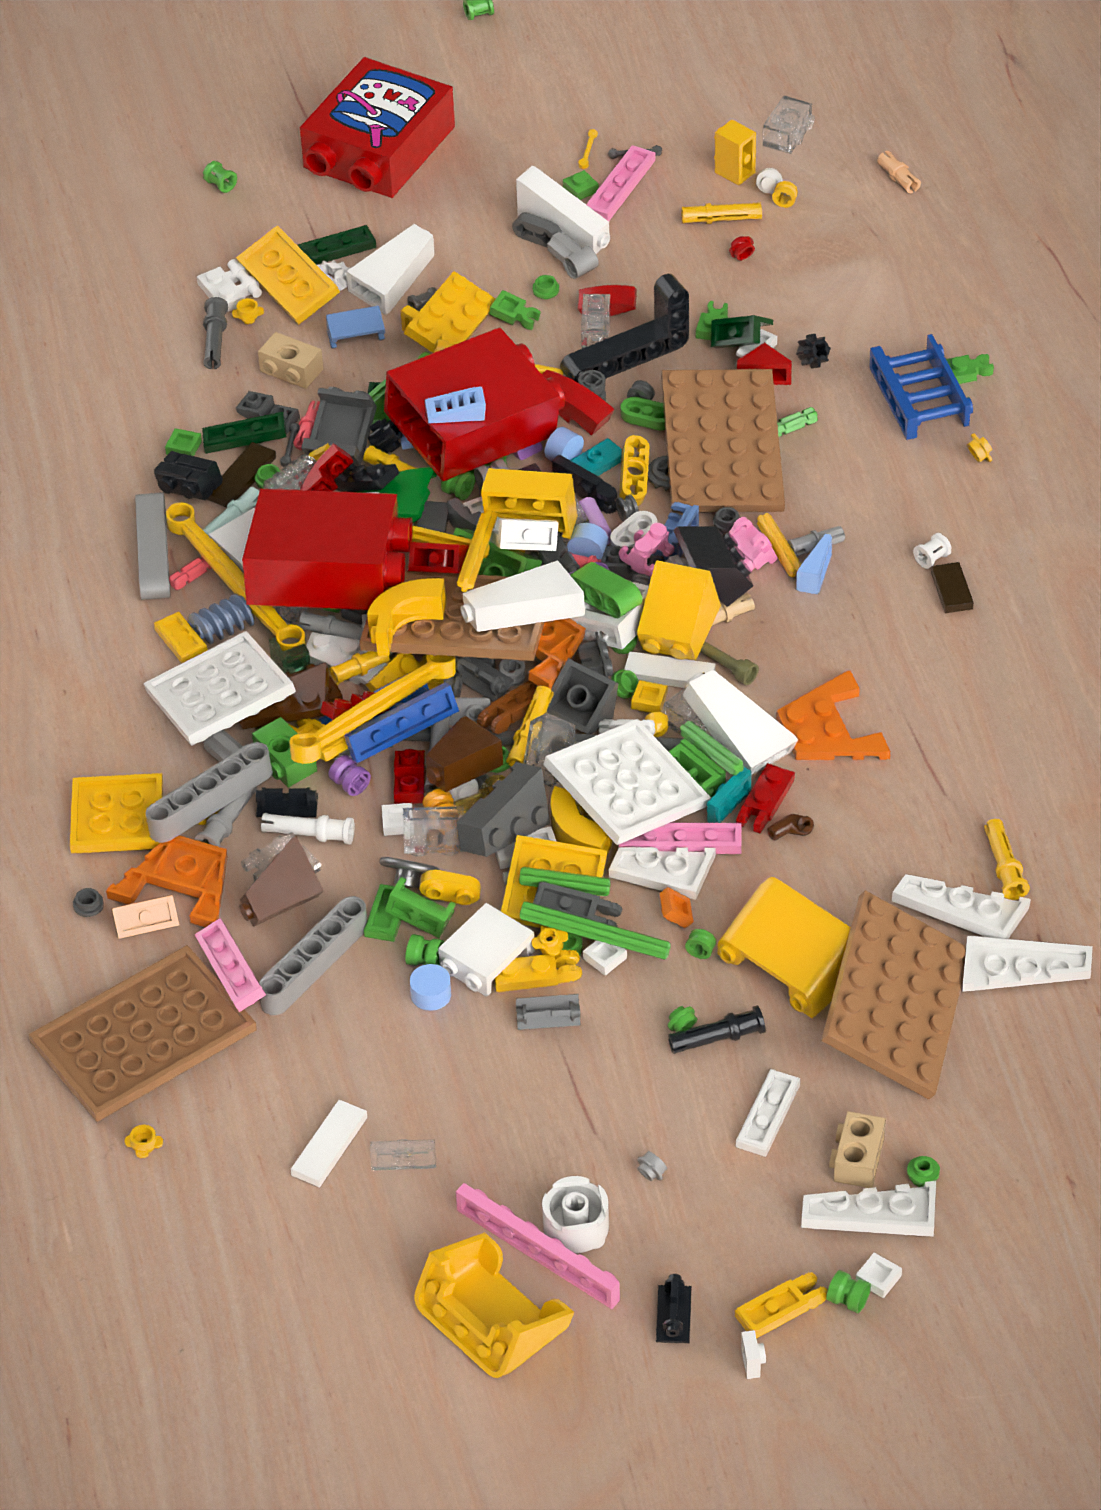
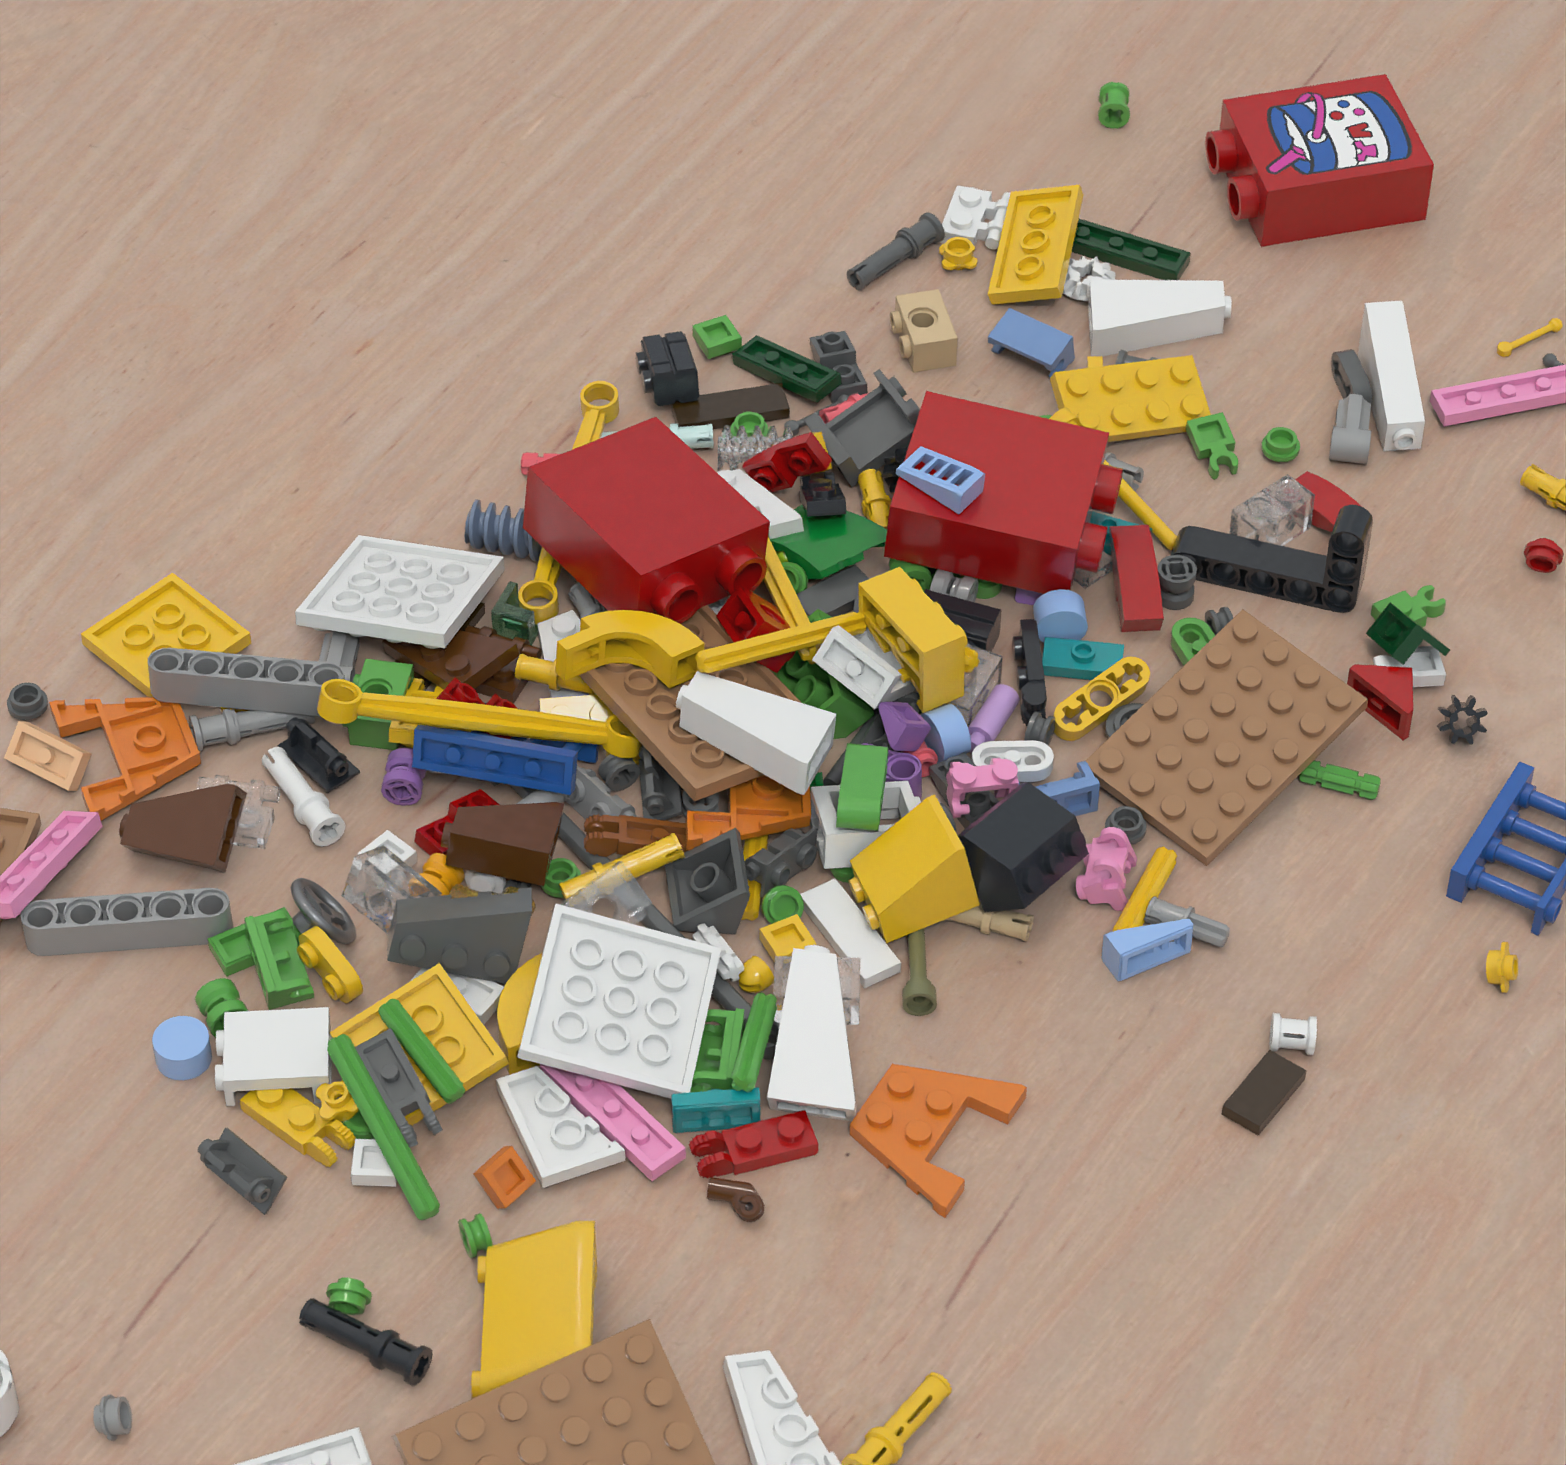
camera: 45 degrees right, 0 degrees up
(152, 546) = (546, 413): light grey beam -> none
(180, 637) = (449, 518): yellow plate -> none
(573, 549) = (903, 726): none -> medium lavender slope
(581, 185) = (1466, 367): bright green plate -> none

